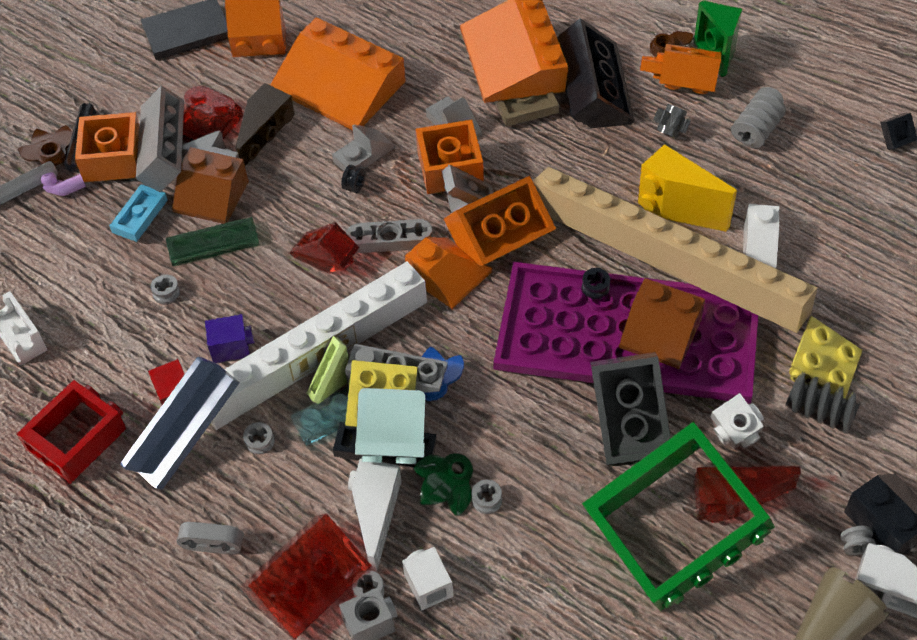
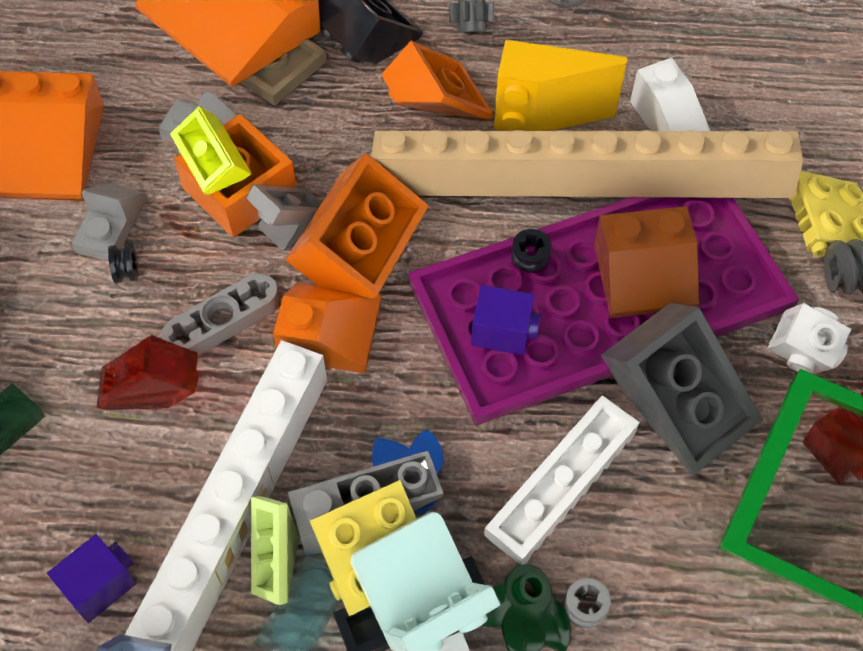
camera: 35 degrees left, 5 degrees up
(437, 133) = (209, 151): none -> neon yellow slope
(521, 423) = (561, 480): none -> white gear
(545, 313) = (504, 320): none -> dark purple brick
(614, 154) = (434, 84): none -> orange slope

